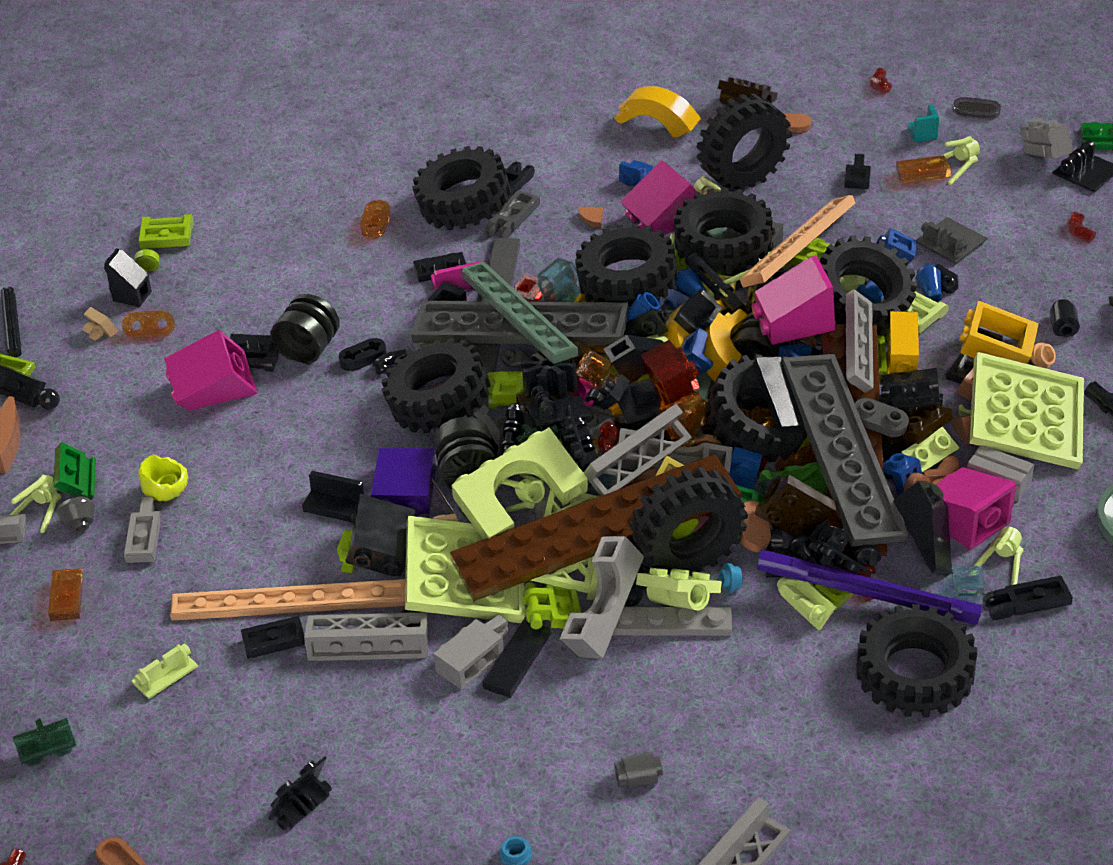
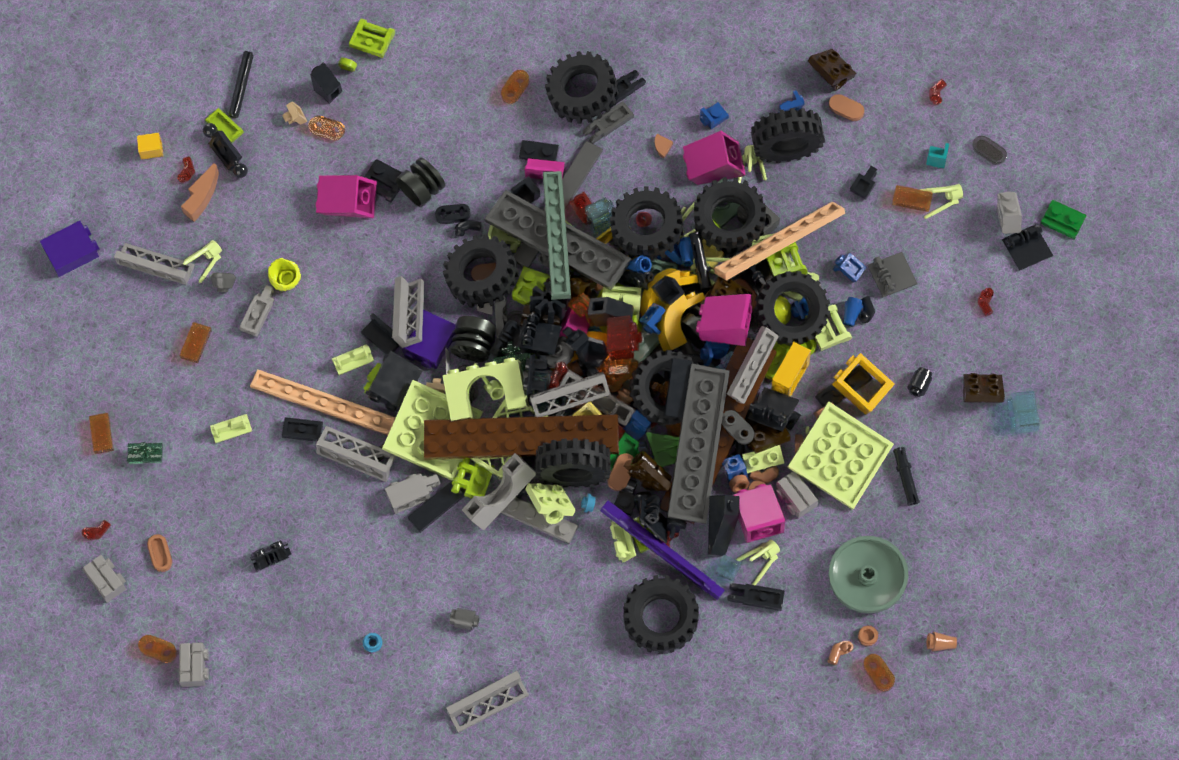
camera: 25 degrees right, 25 degrees up
(74, 472) = (233, 244): green plate -> none
(306, 539) = (353, 359): none -> yellowish green hinge
(357, 461) = (403, 314): none -> light grey fence
(662, 105) = (759, 63): yellow arch -> none
(1043, 355) = (885, 408): light nougat plate -> none

